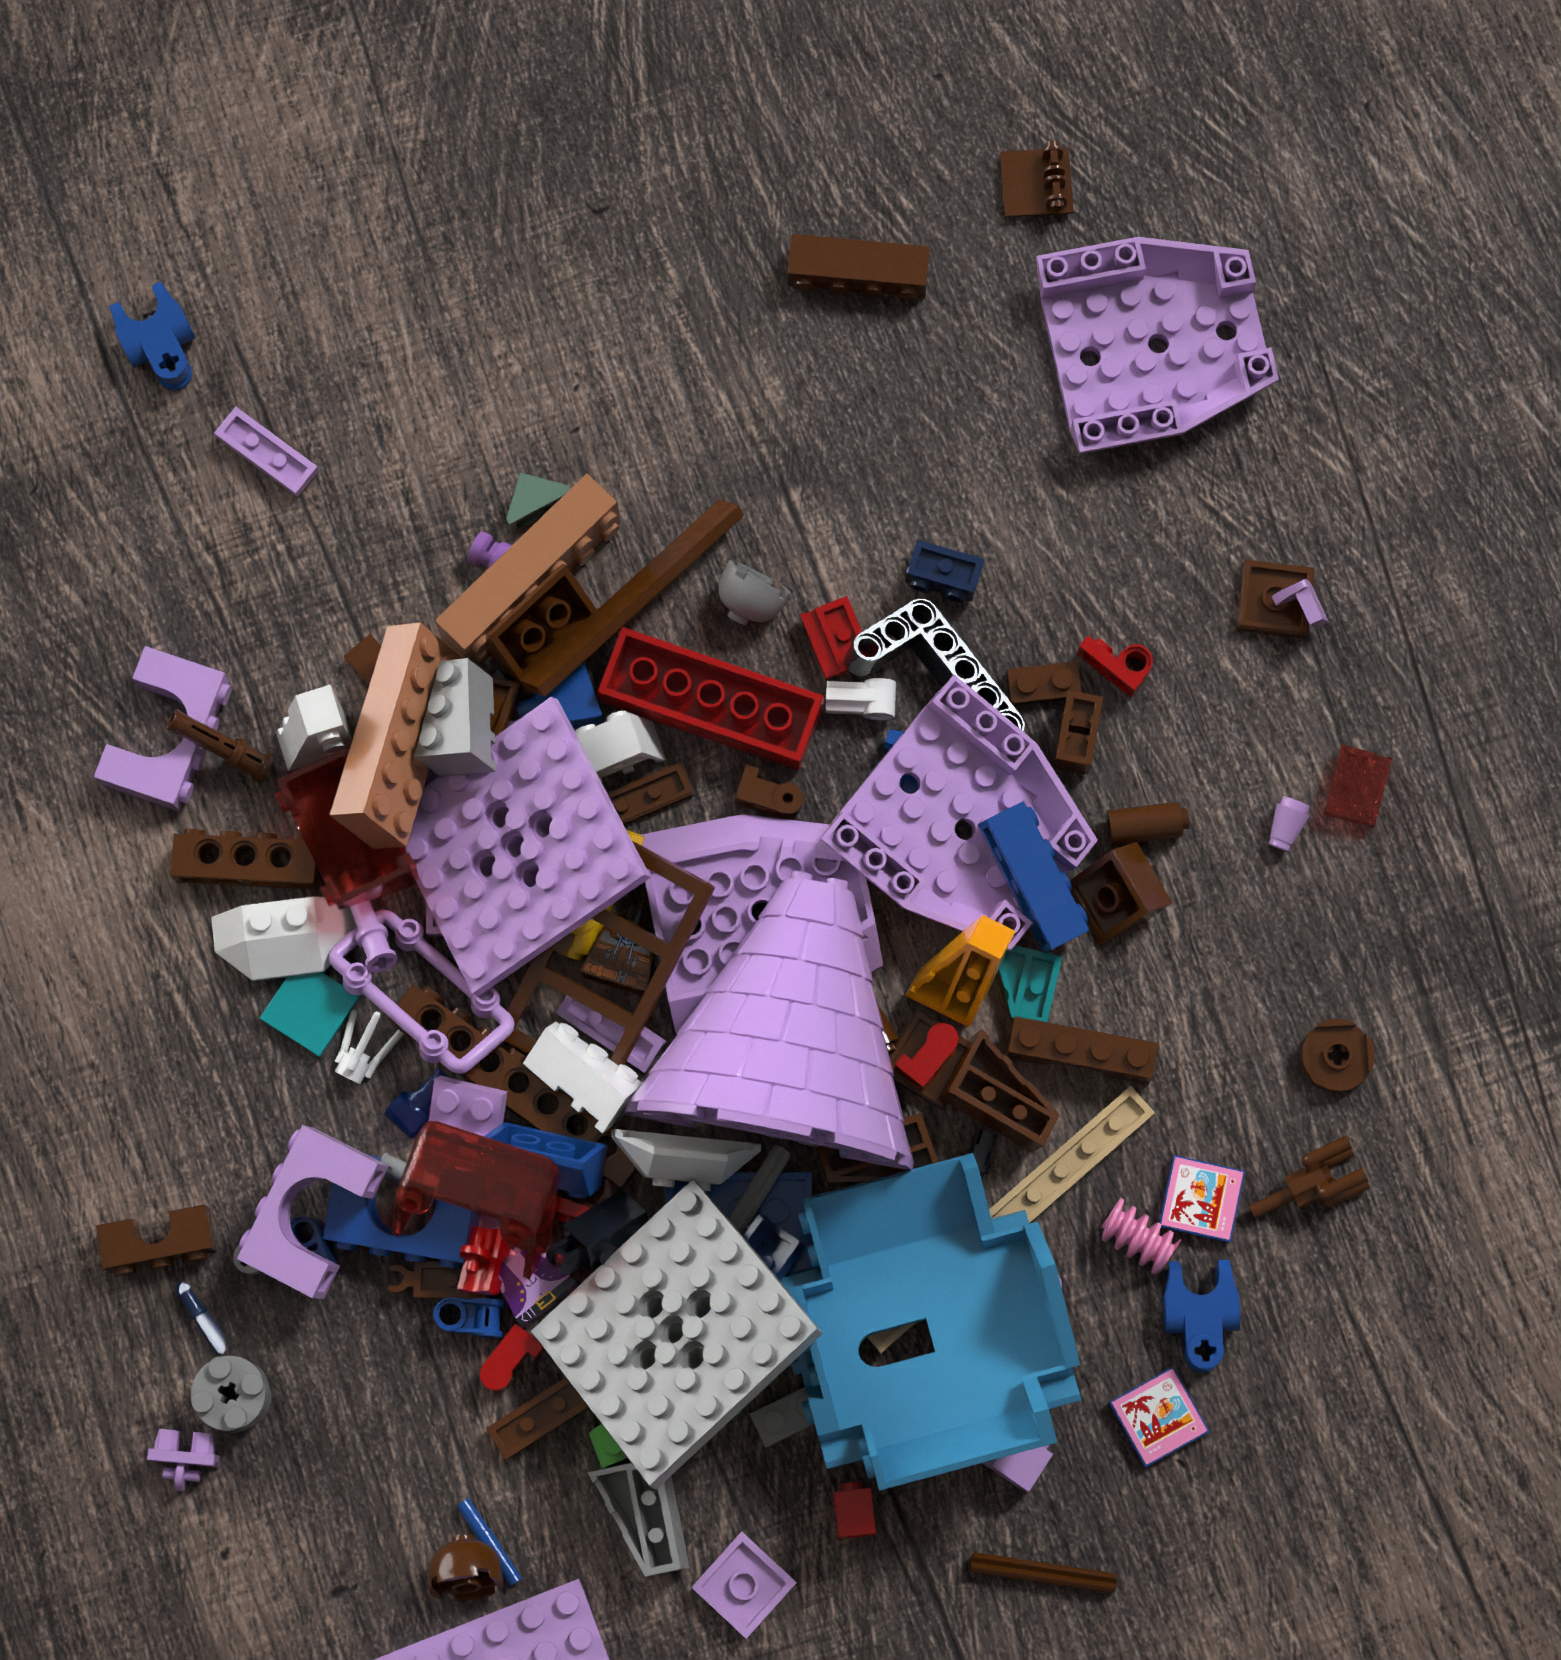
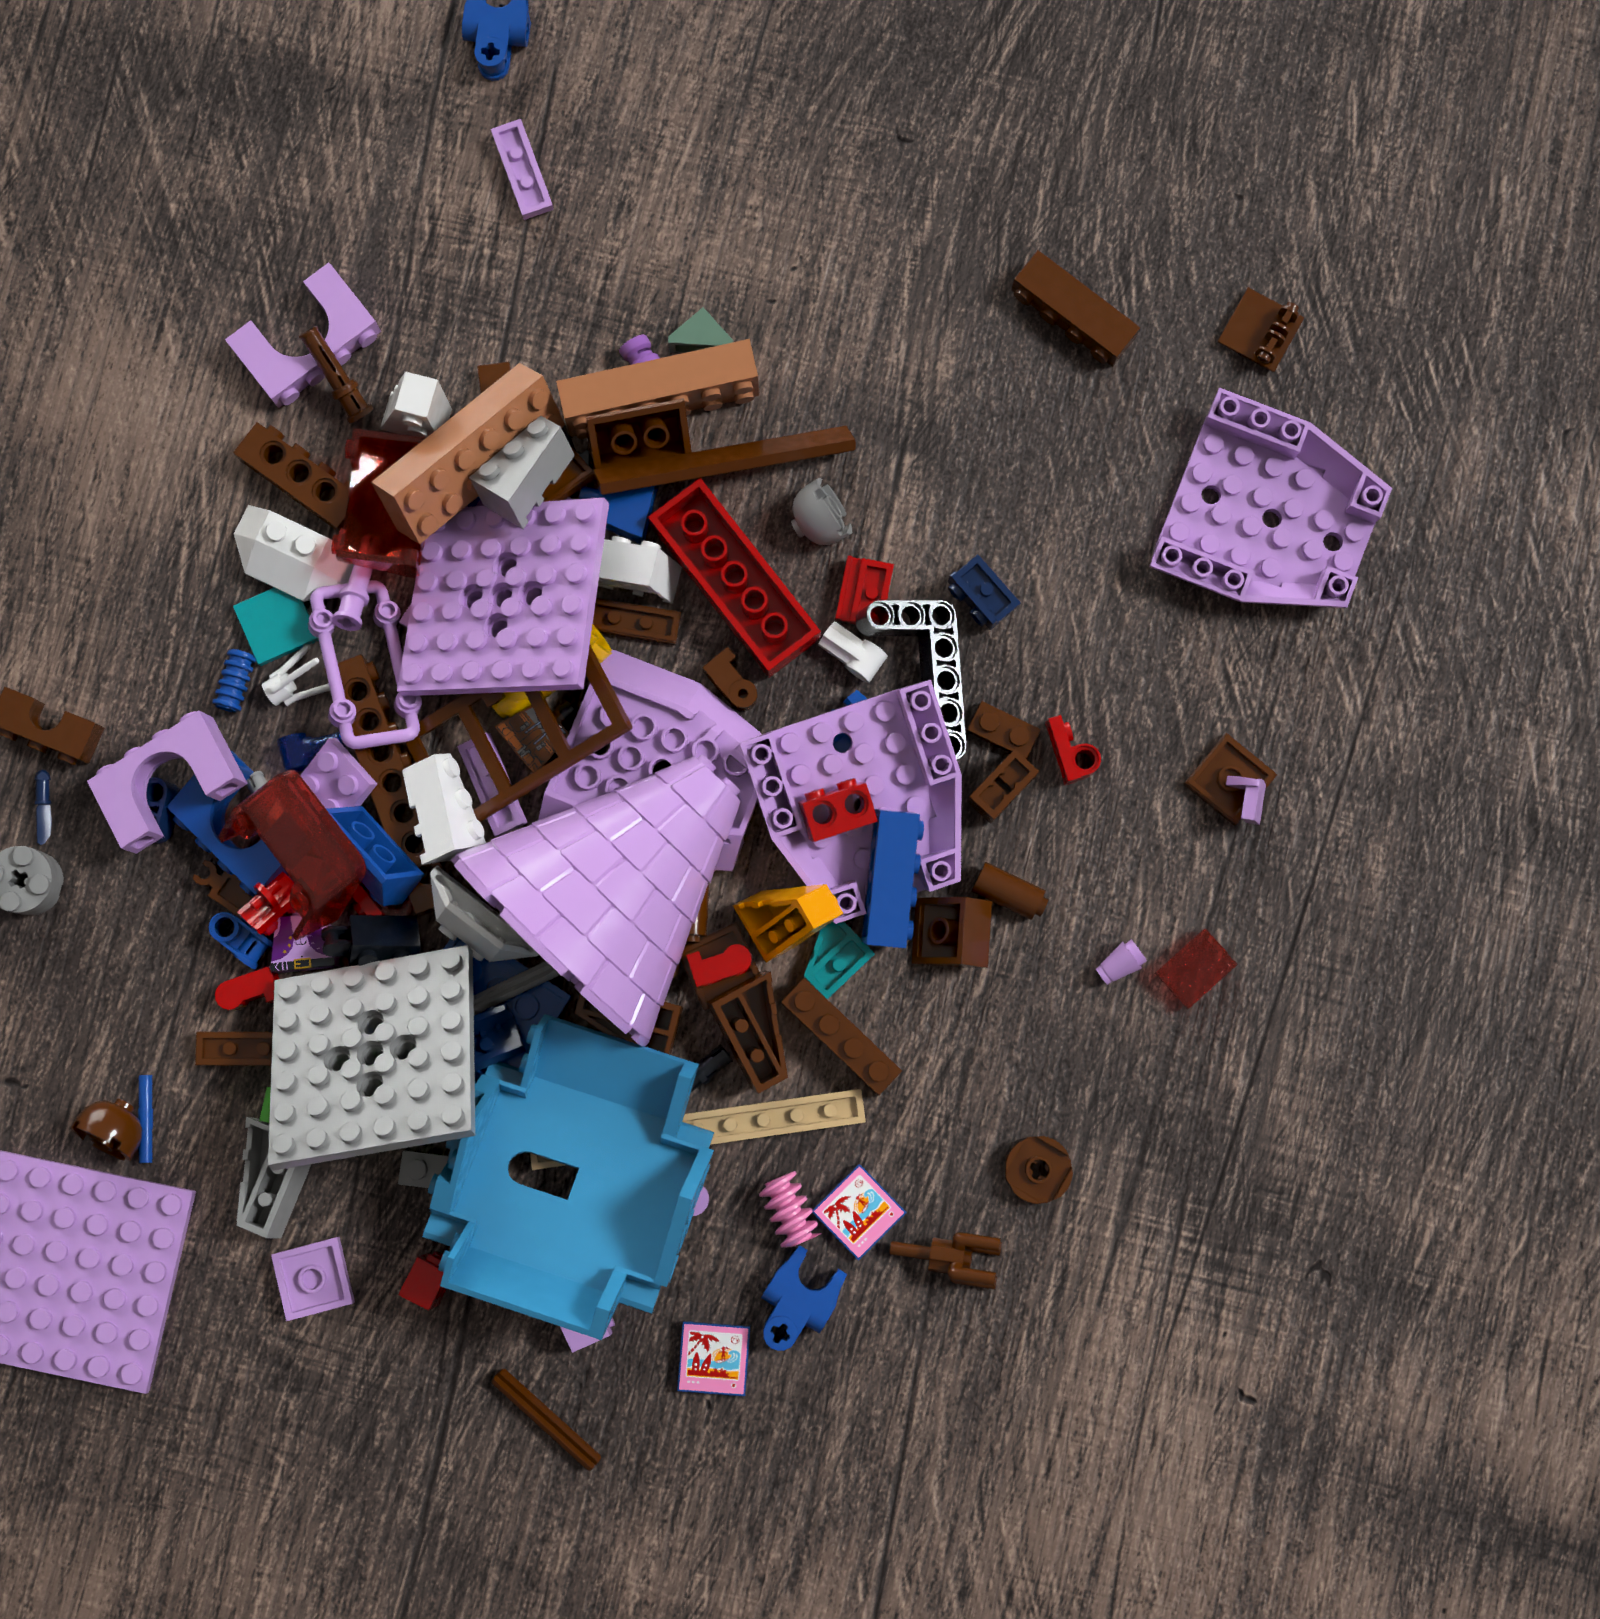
camera: 30 degrees right, 5 degrees up
(306, 1085) = (234, 680): none -> blue piece
(952, 850) = (839, 818): none -> red brick

